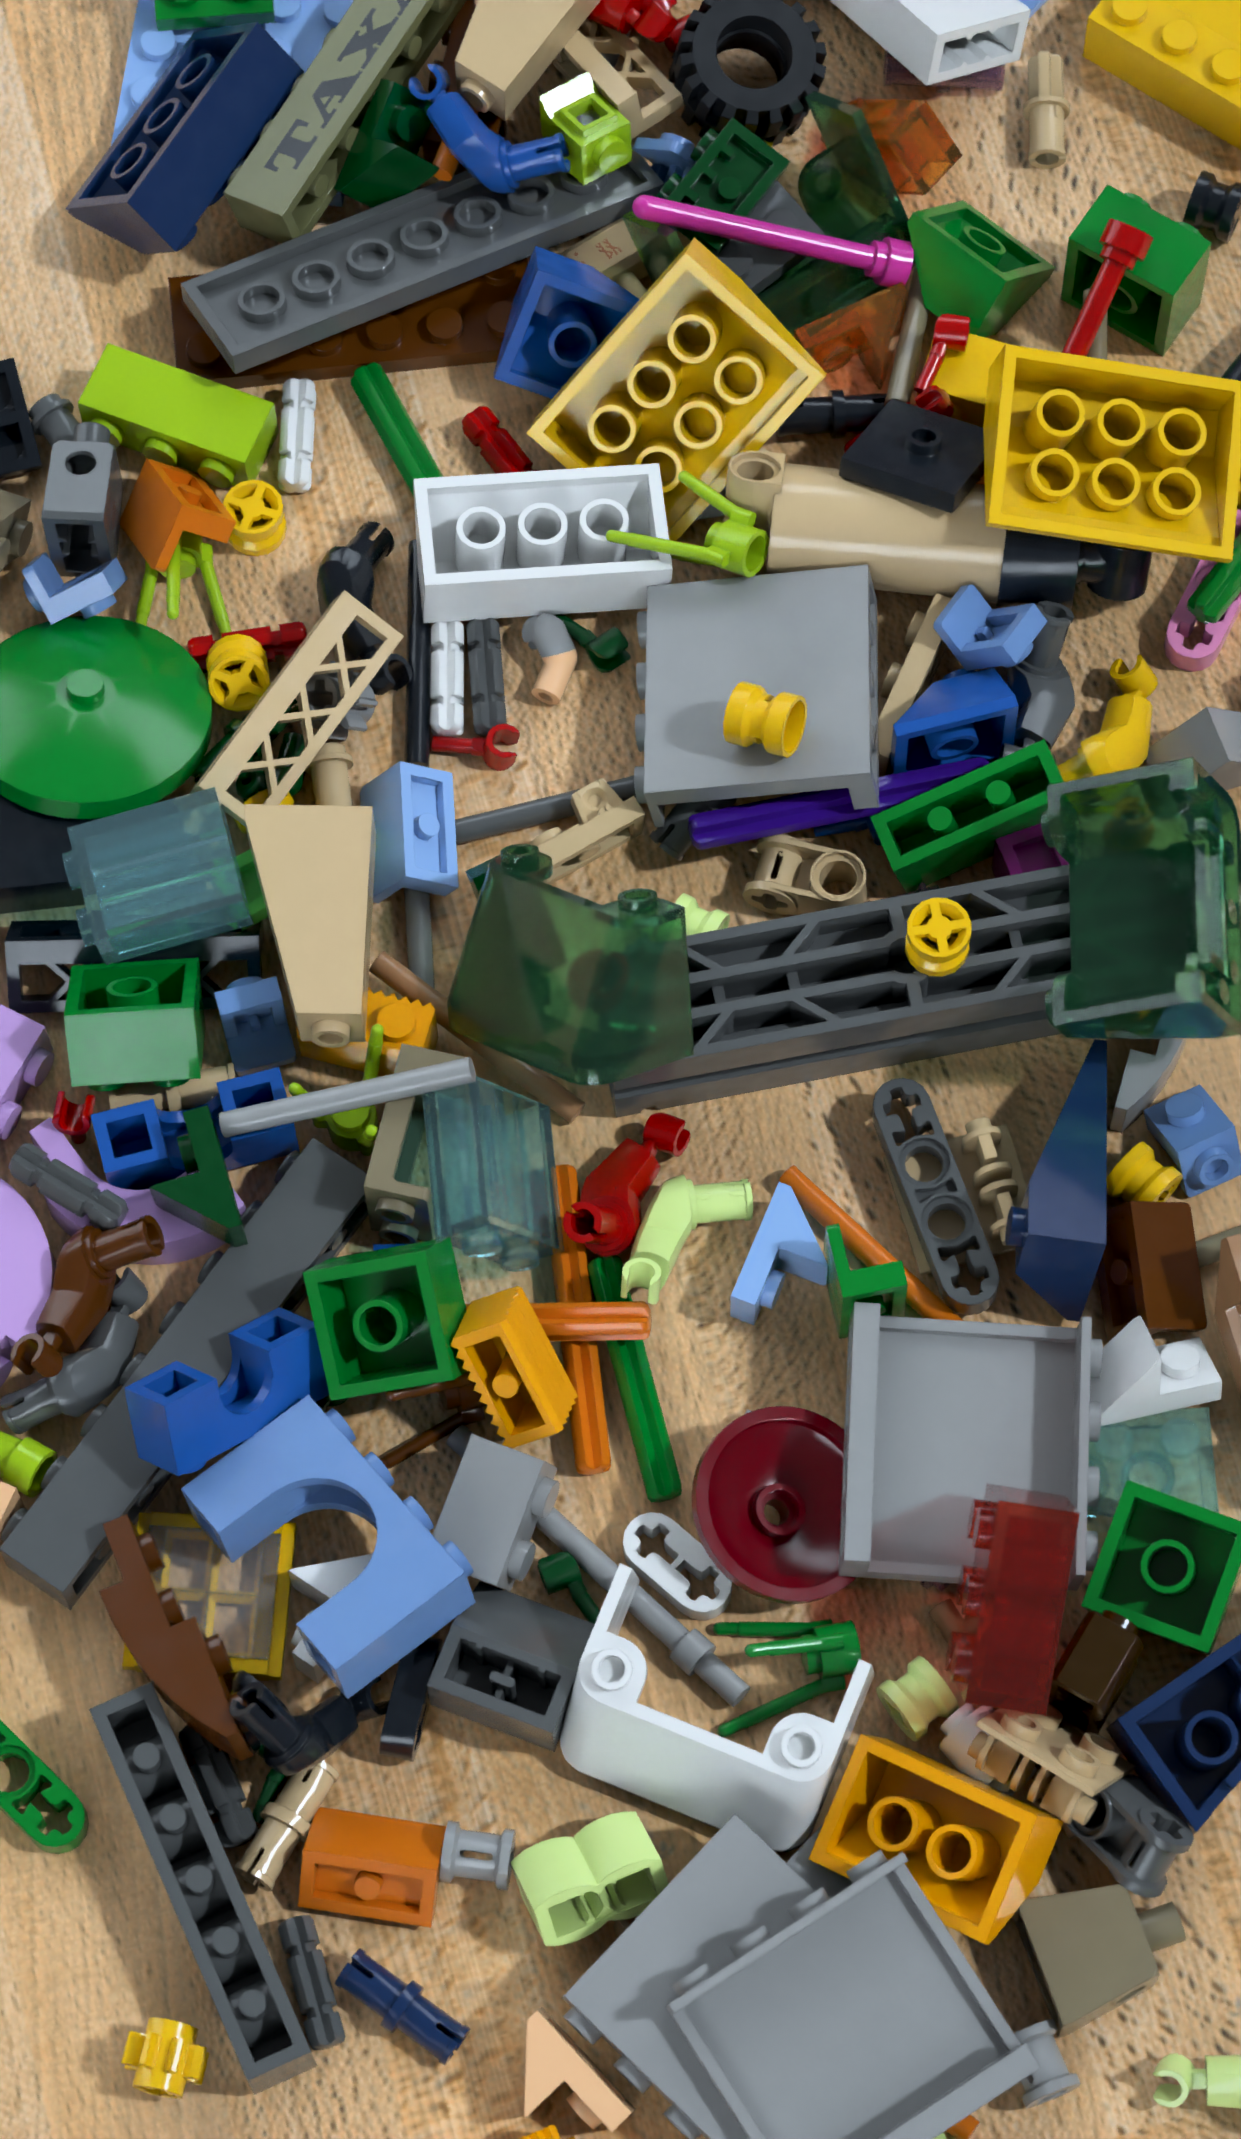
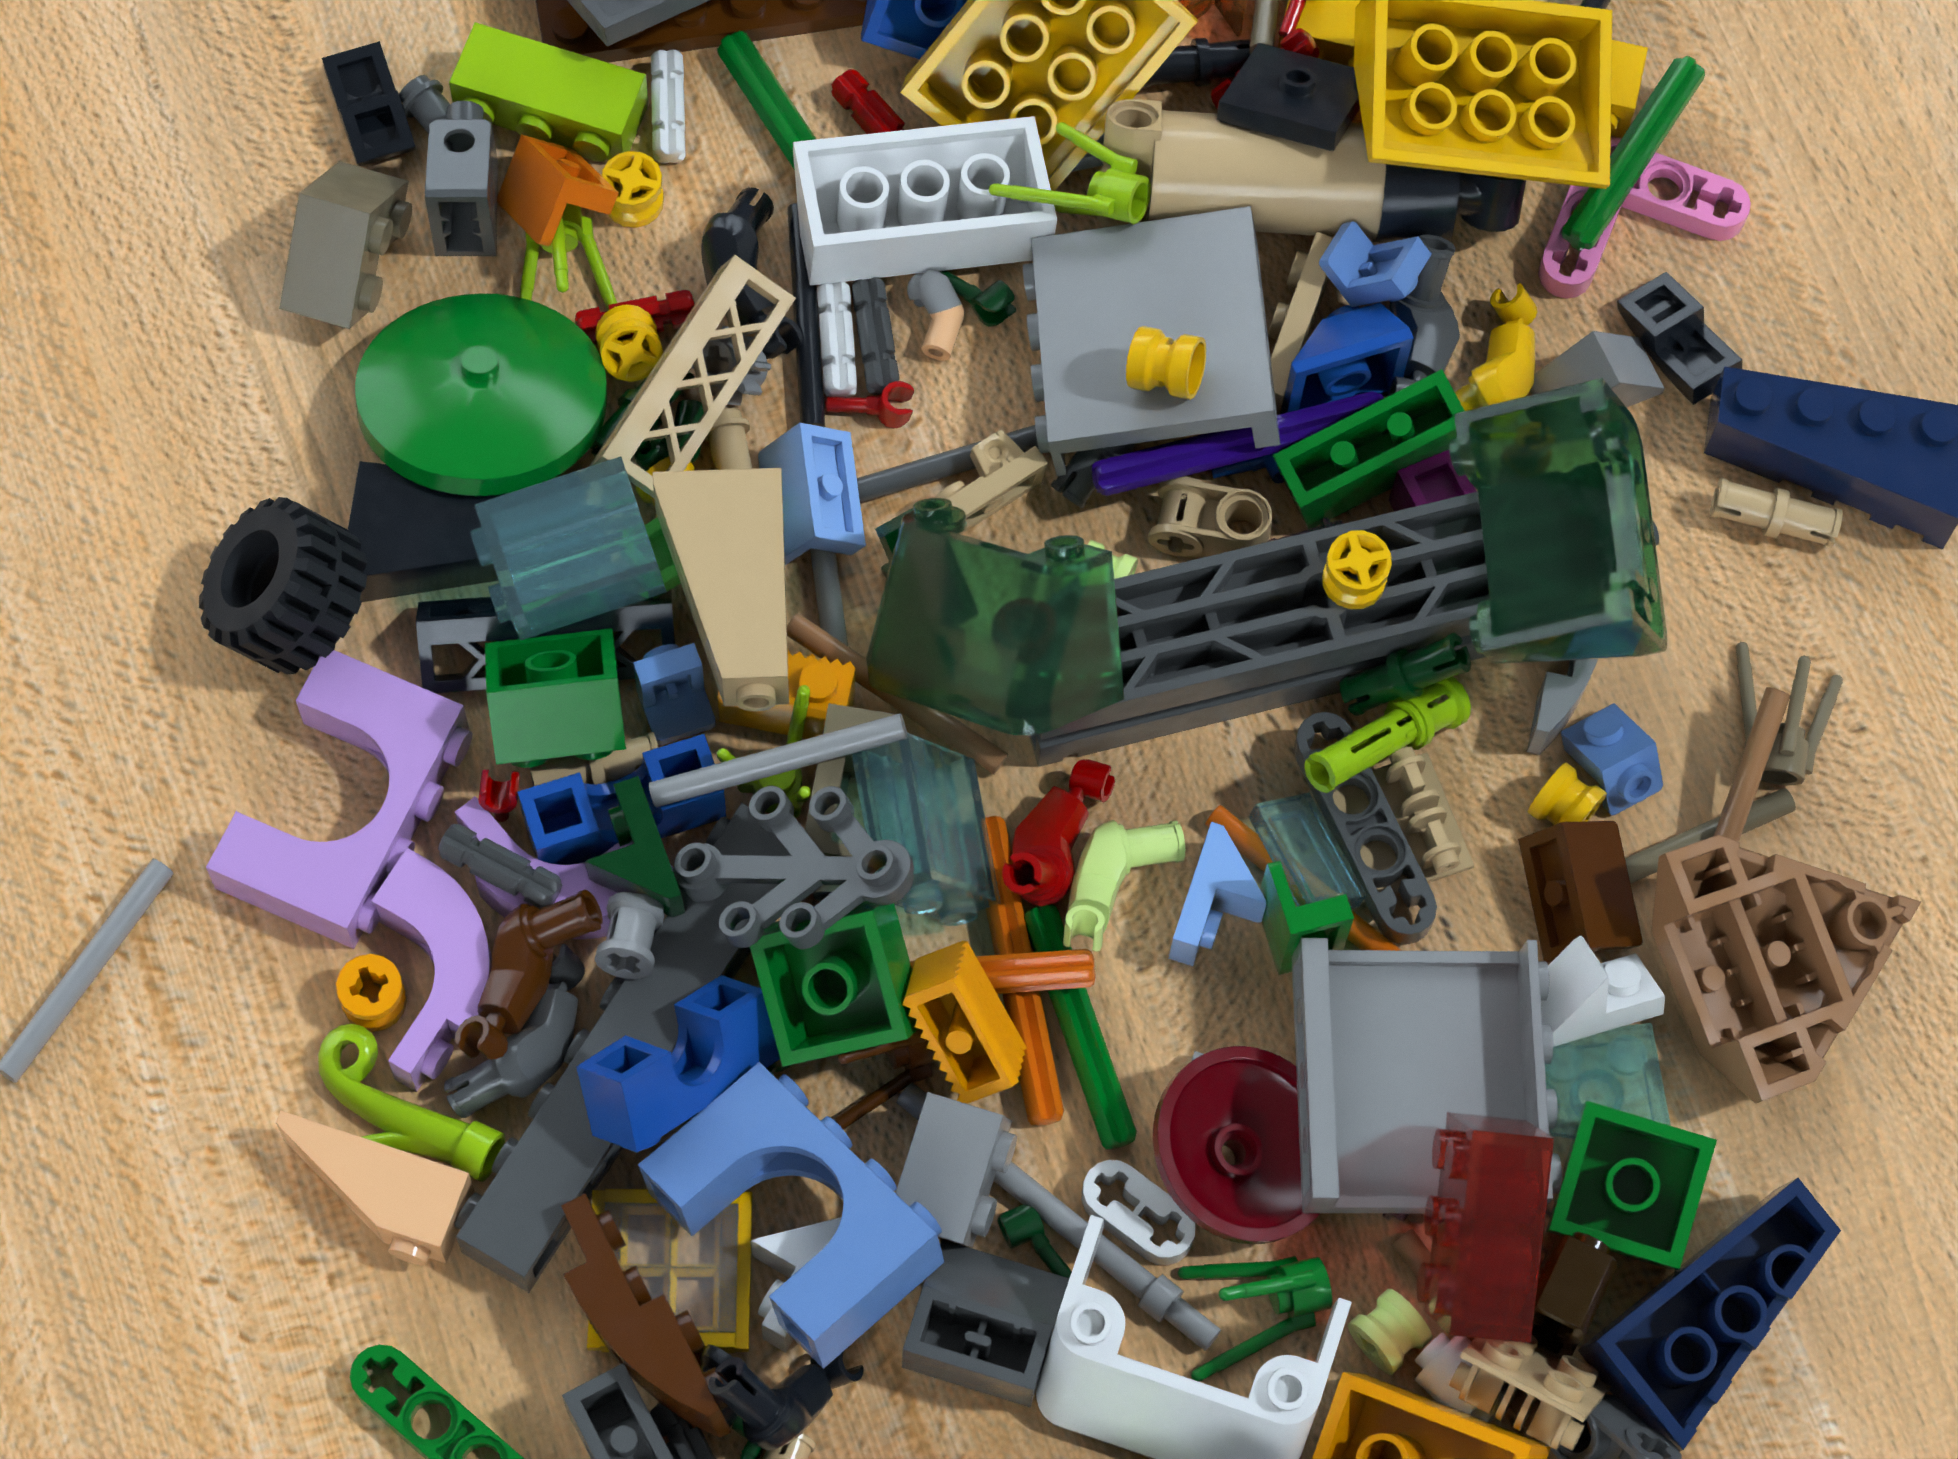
camera: 10 degrees left, 0 degrees up
(86, 593) = (471, 271): medium blue bracket -> none
(190, 1262) = (630, 935): none -> light grey bush
(409, 1702) = (882, 1366): black beam -> none
(430, 1213) = (799, 873): none -> dark grey plant
(874, 1216) = (1308, 851): none -> clear light blue tile
(985, 1044) = (1405, 674): none -> dark green pin
(985, 1093) = (1402, 725): none -> lime pin
(1064, 1208) = (1500, 835): dark blue wedge -> none

